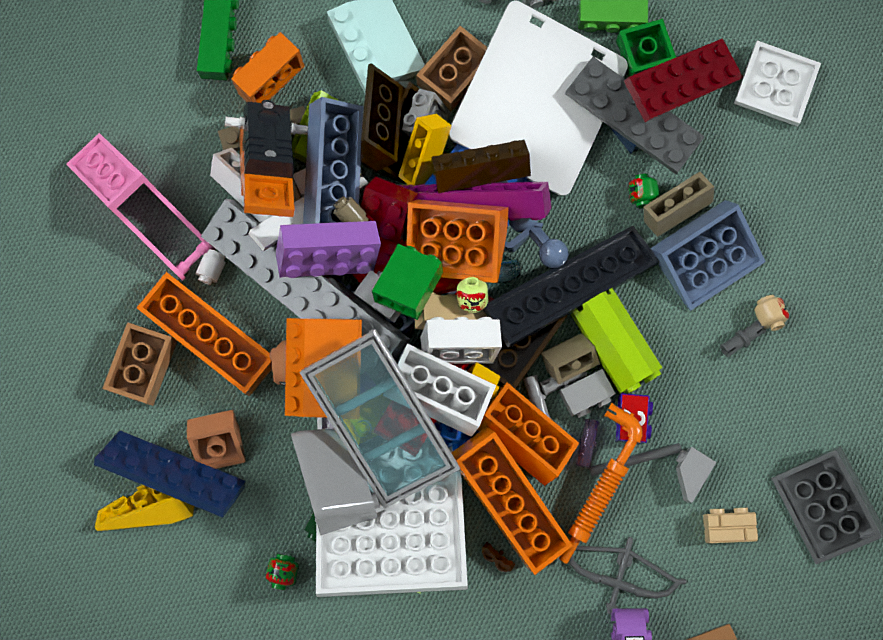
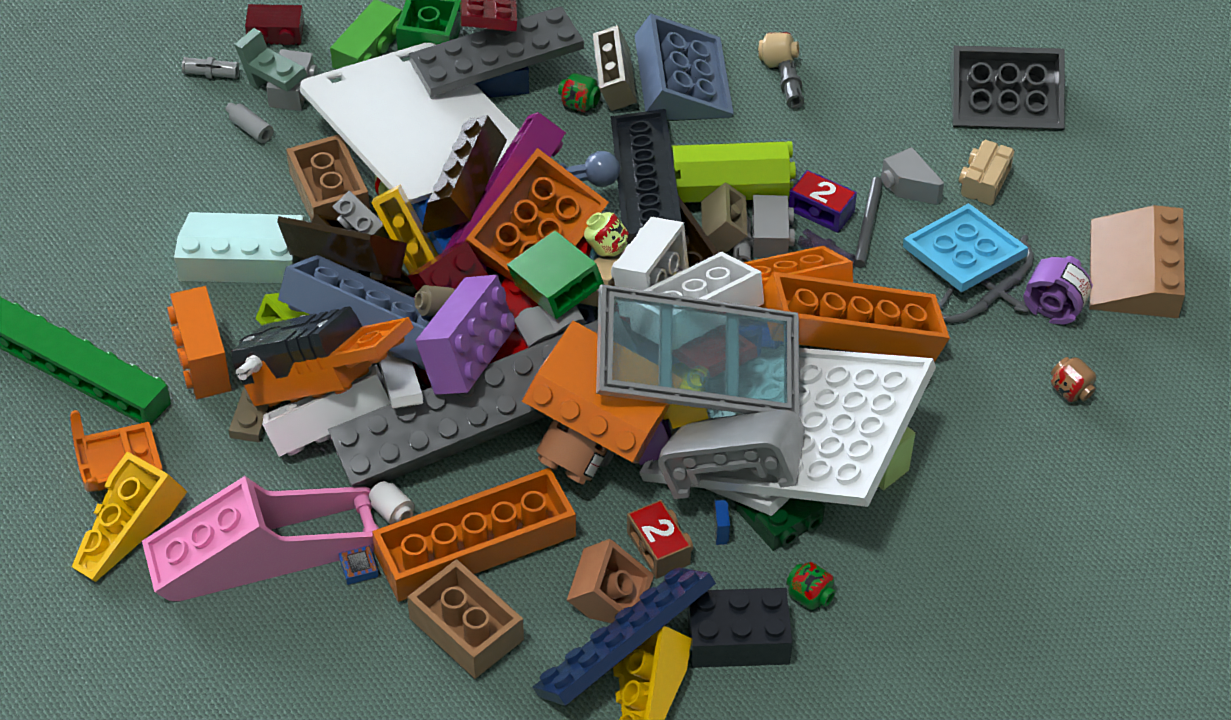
camera: 65 degrees left, 30 degrees down
(123, 111) = (133, 507): none -> yellow wedge
(156, 270) = (358, 565): none -> tile
(159, 75) = (102, 451): none -> orange piece
(222, 543) = (740, 628): none -> black brick
(269, 453) = (659, 538): none -> brick
(299, 489) = (721, 522): none -> blue tile
(606, 487) = (877, 235): orange piece -> none
(641, 544) = (965, 247): none -> medium azure plate

